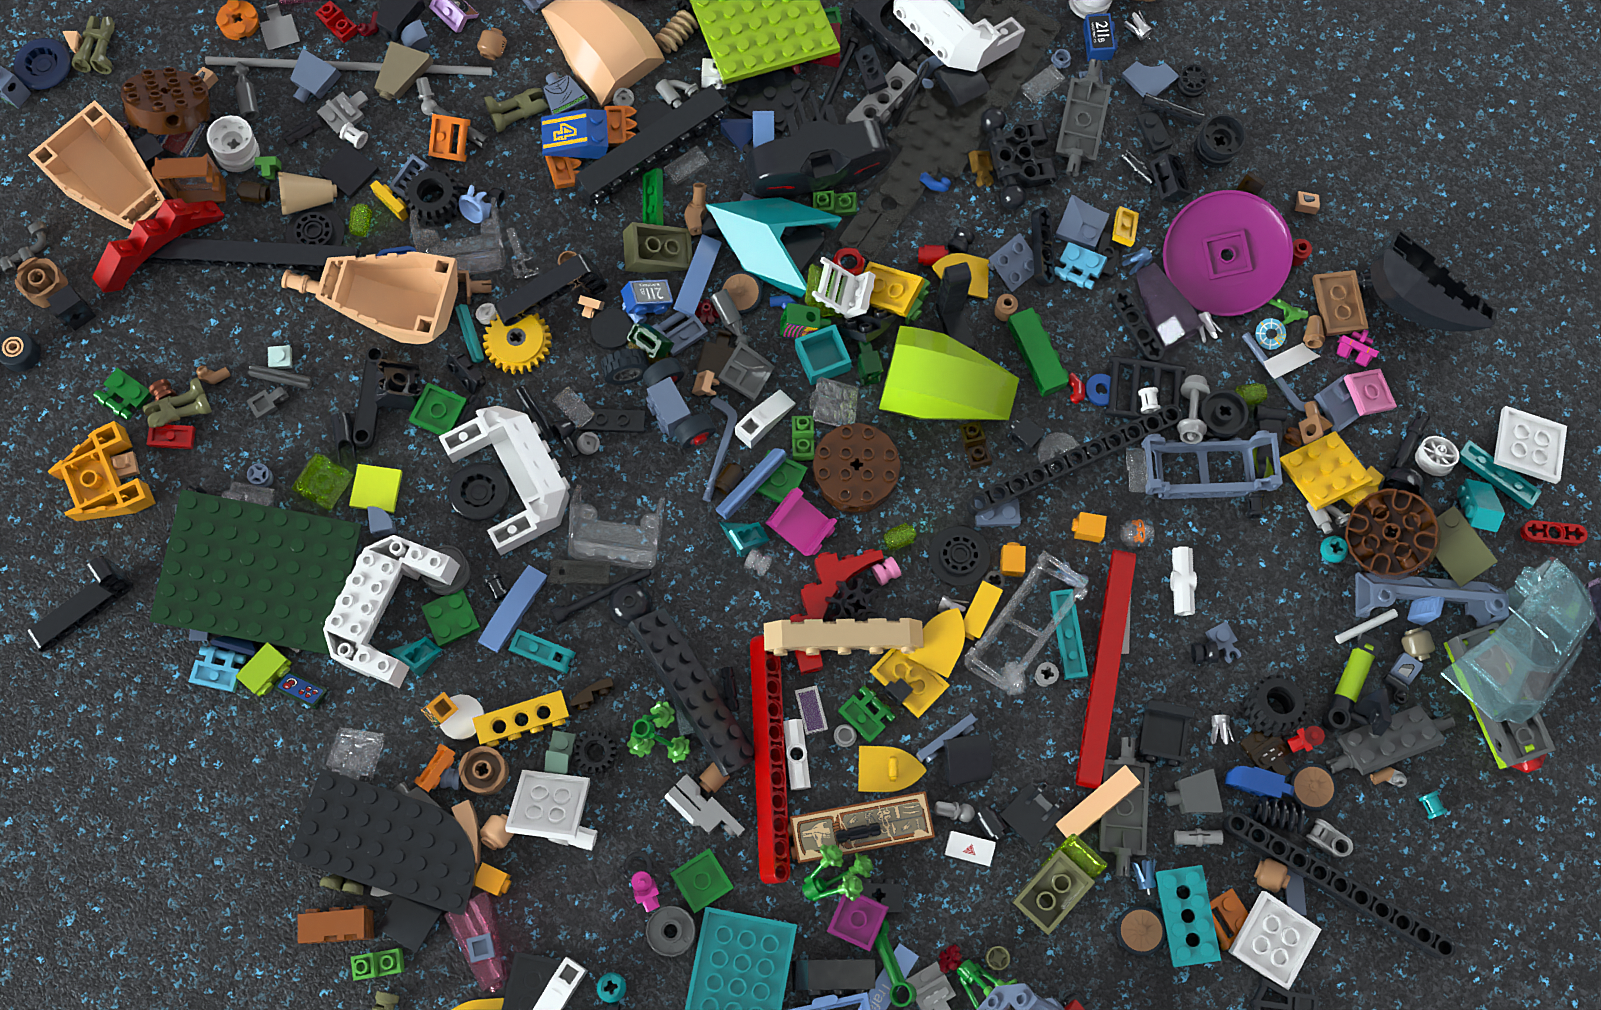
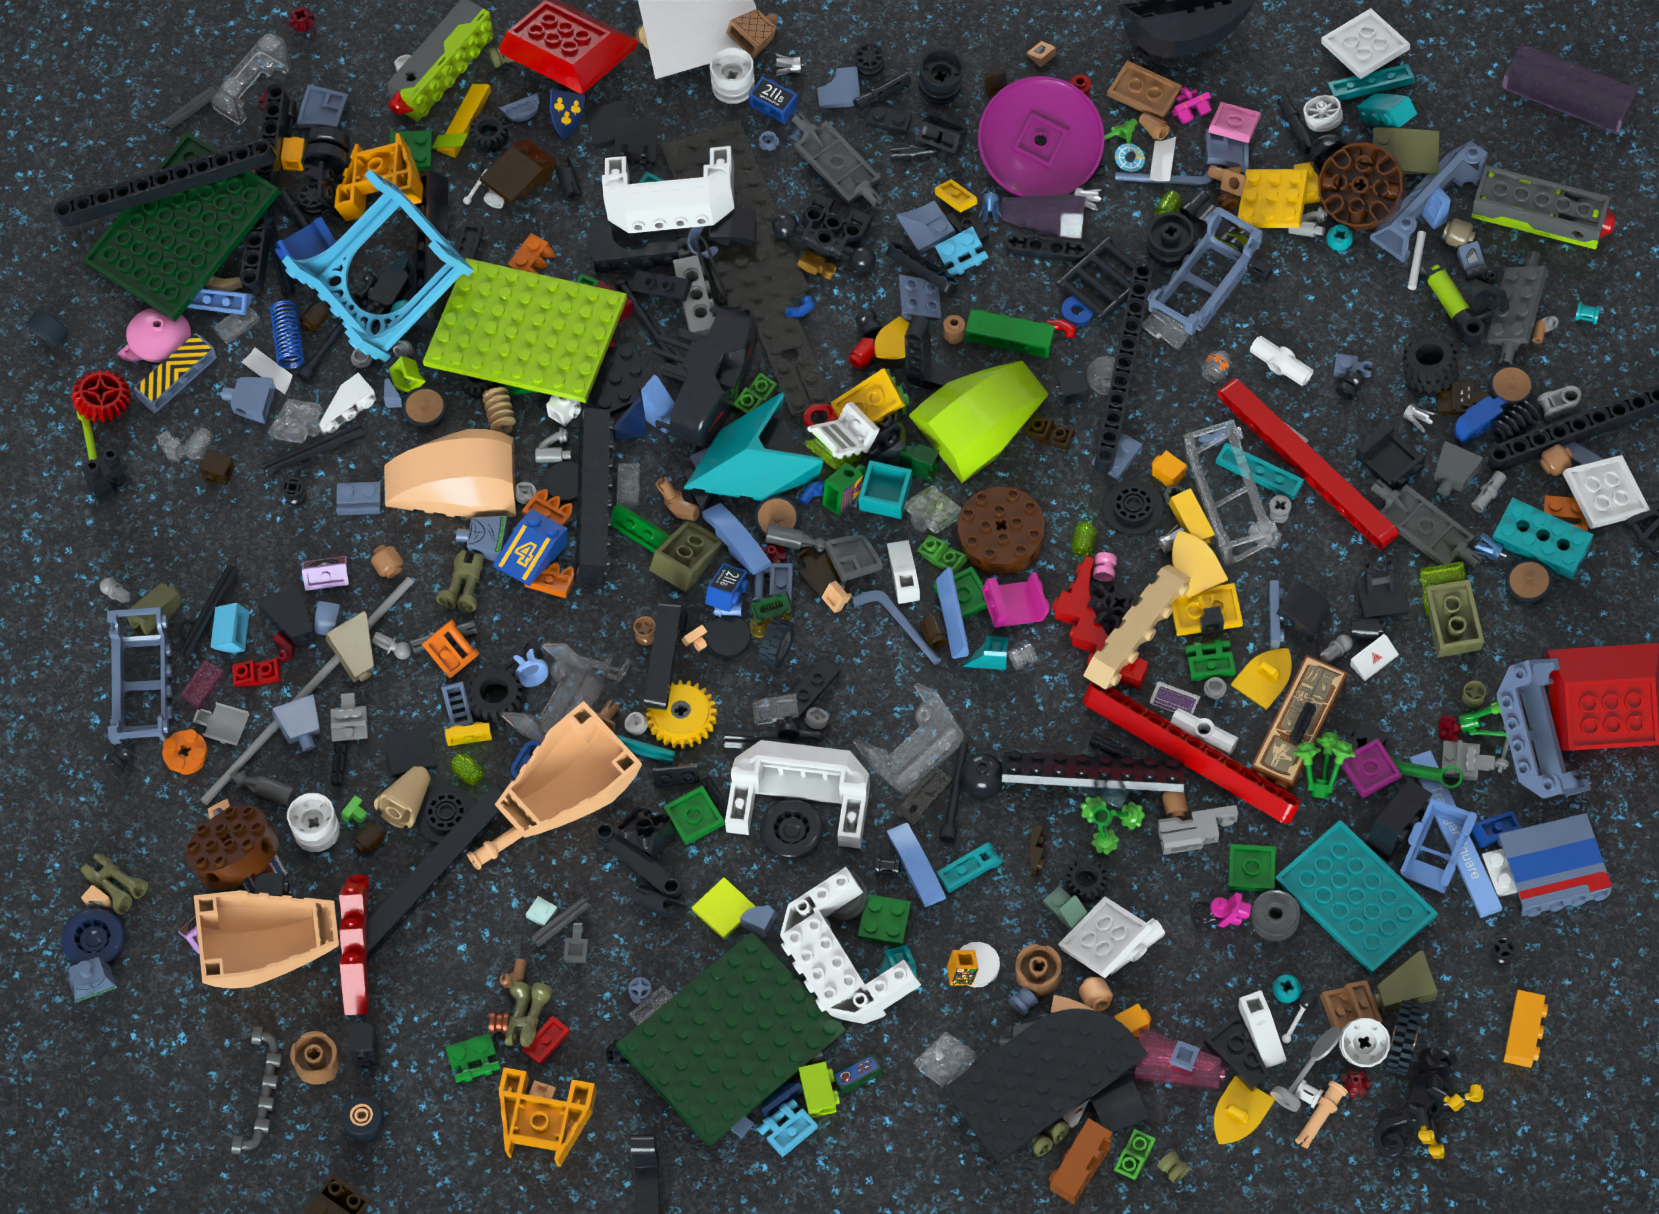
camera: 45 degrees left, 10 degrees down
(190, 179) = (326, 870): dark orange window -> none
(322, 481) = (683, 945): clear neon green slope -> none
(359, 138) = (381, 725): white bush -> none
(431, 775) = (1007, 1004): orange plate -> none
(485, 722) = (1023, 883): yellow brick -> none
(671, 409) = (840, 631): brick -> none
(1042, 83) = (778, 170): clear plate -> none
(1089, 527) = (1185, 396): light orange brick -> none
(1099, 803) = (1409, 539): light nougat tile -> none
(1149, 400) = (1117, 279): white bush -> none
(1193, 429) = (1166, 265): light grey piece -> none
(1305, 739) = (1471, 362): red hips -> none
(1533, 650) = (1529, 166): clear light blue windscreen -> none
(1562, 528) = (1444, 89): red beam -> none

